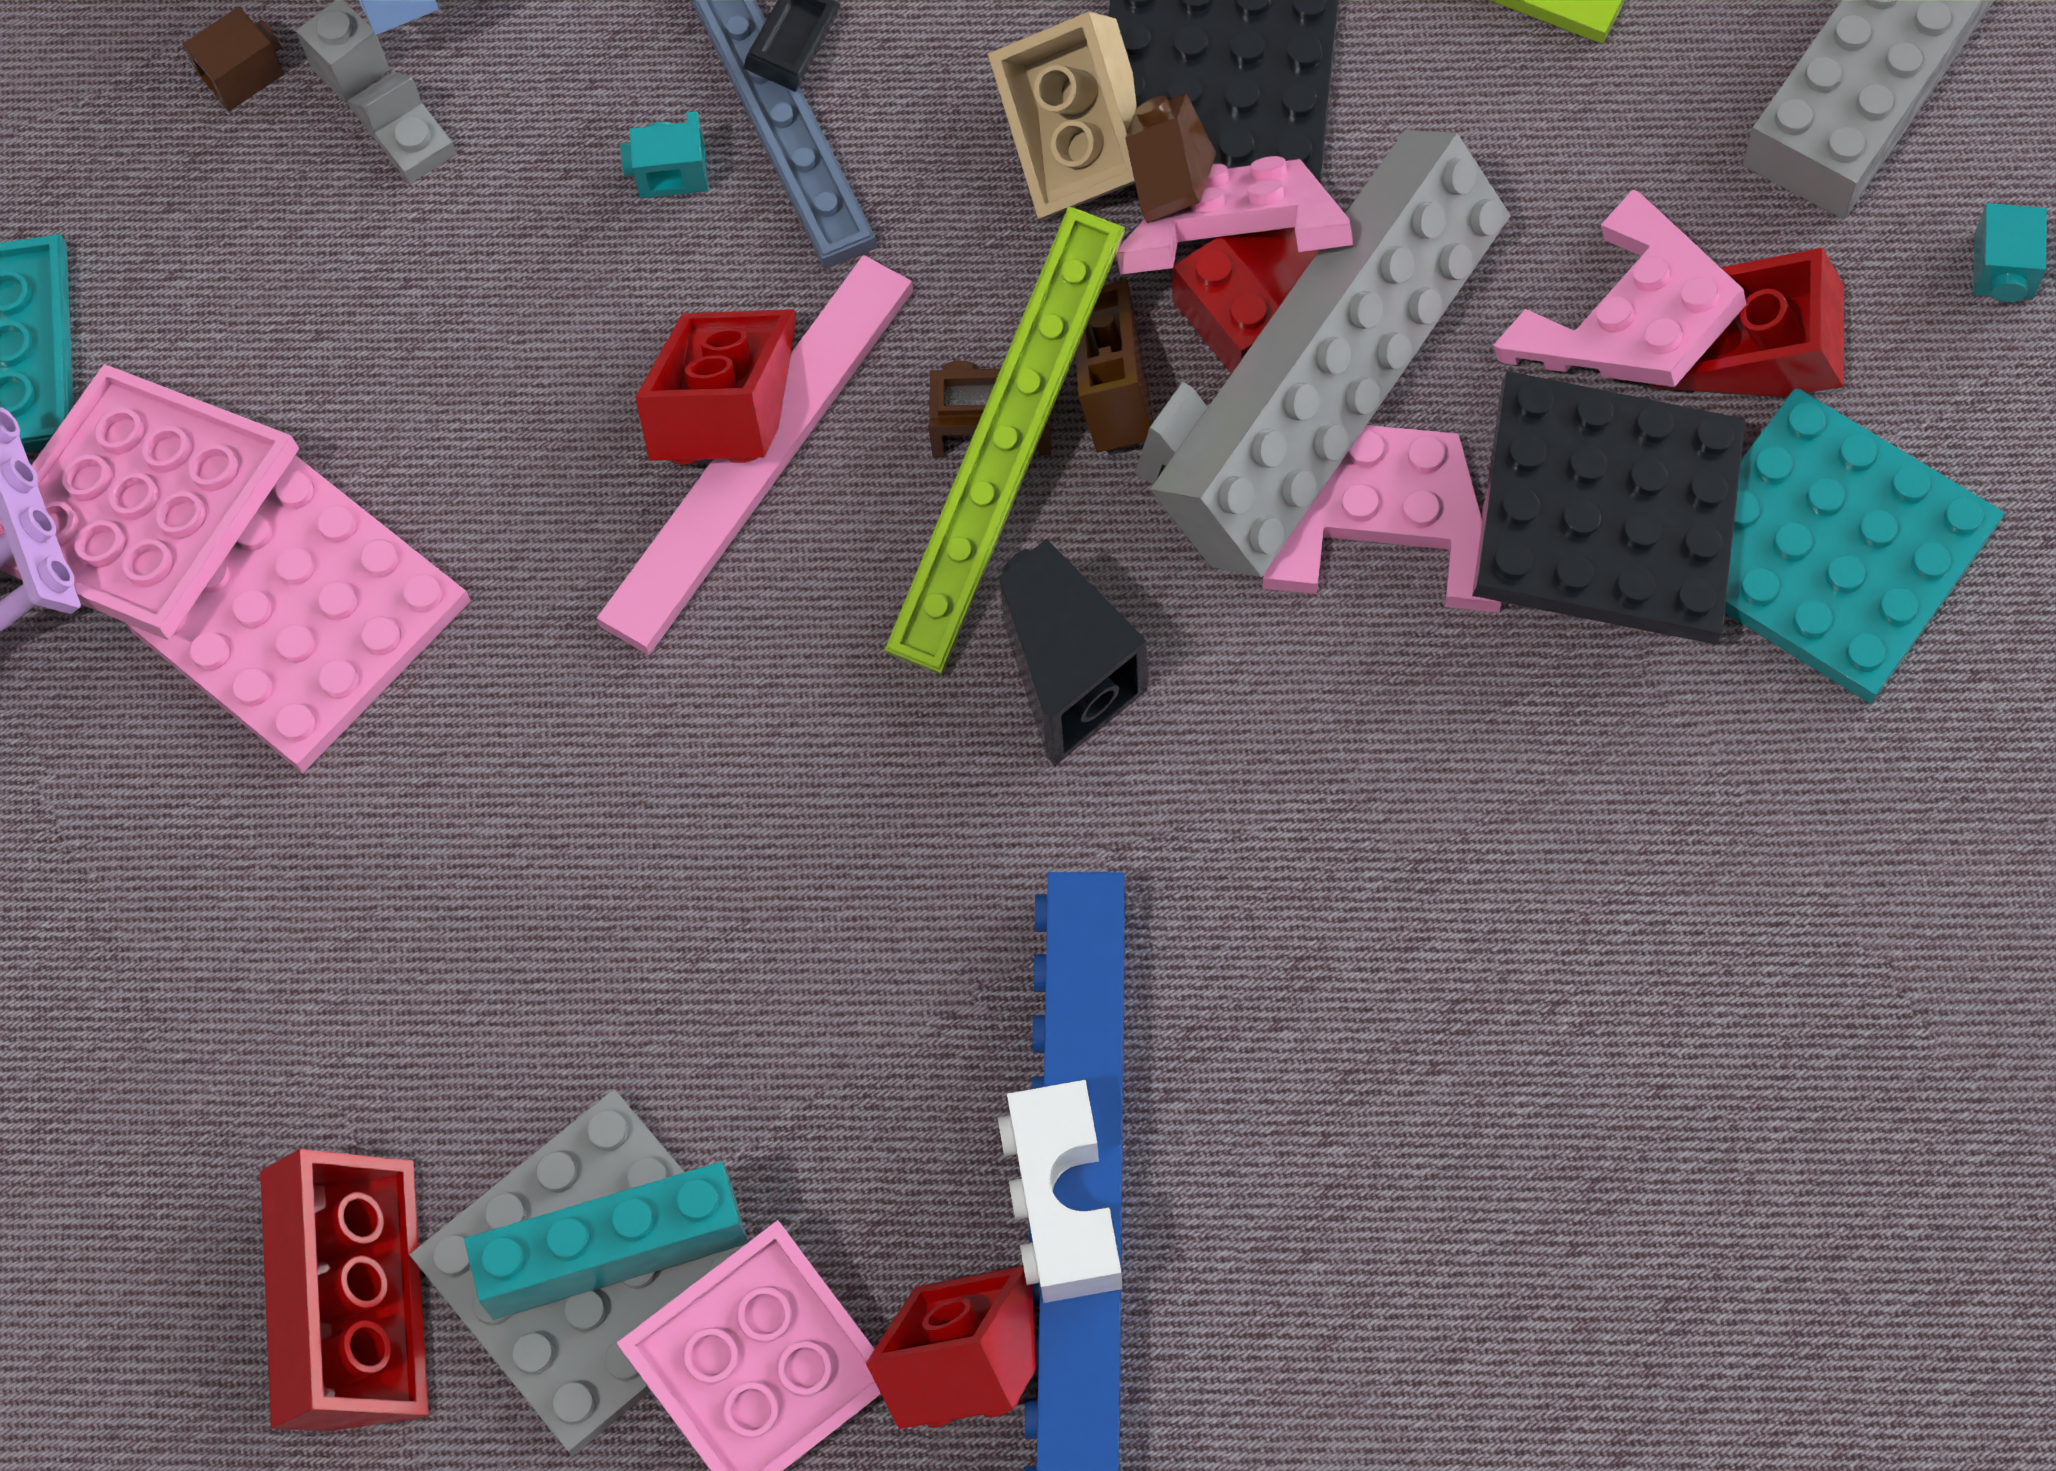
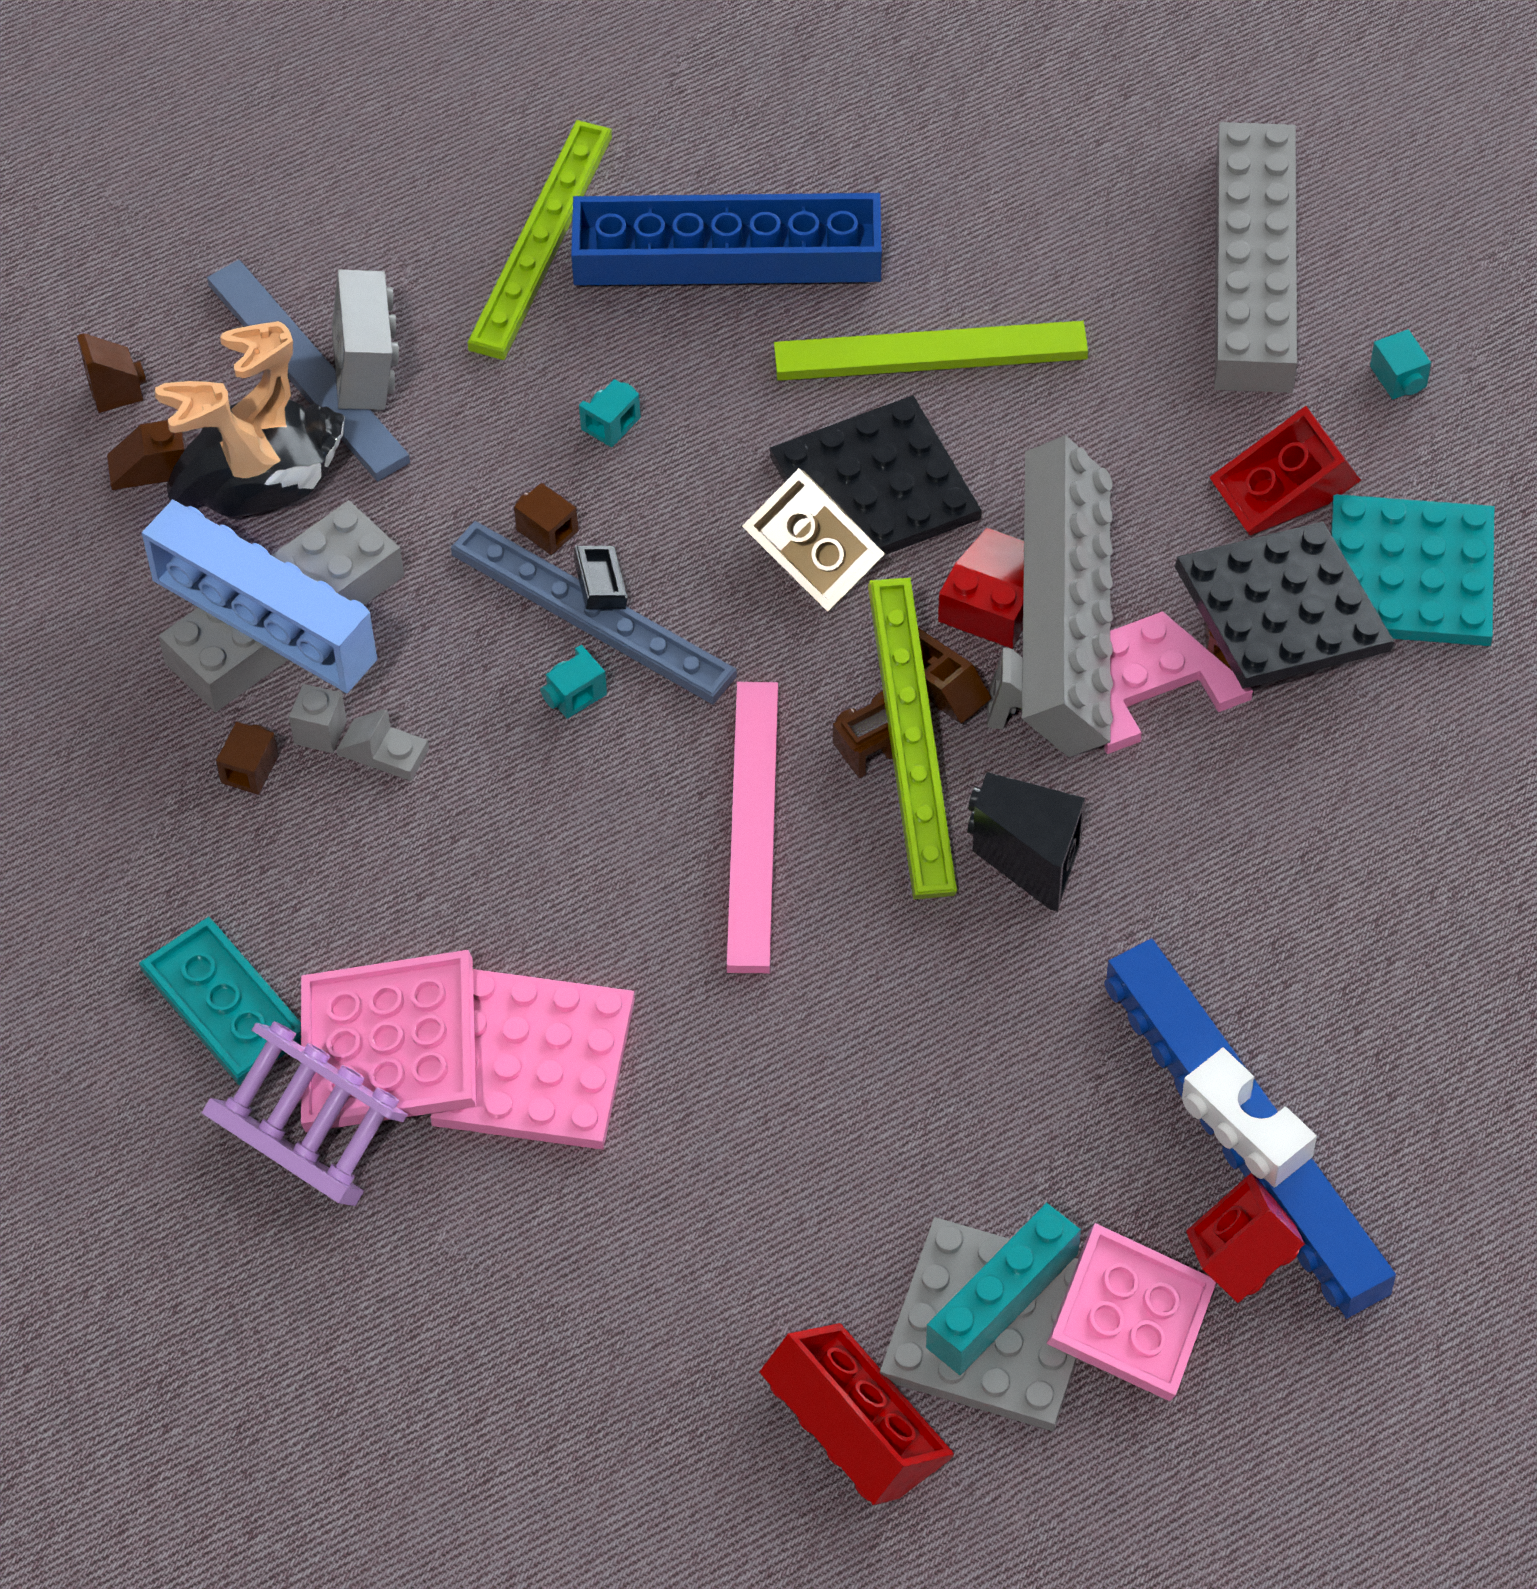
camera: 35 degrees left, 10 degrees down
(717, 387) = (710, 795): red slope -> none
(1168, 155) = (894, 533): reddish brown slope -> none
(1242, 201) = (957, 535): bright pink wing -> none
(1651, 320) = (1232, 491): bright pink wing -> none

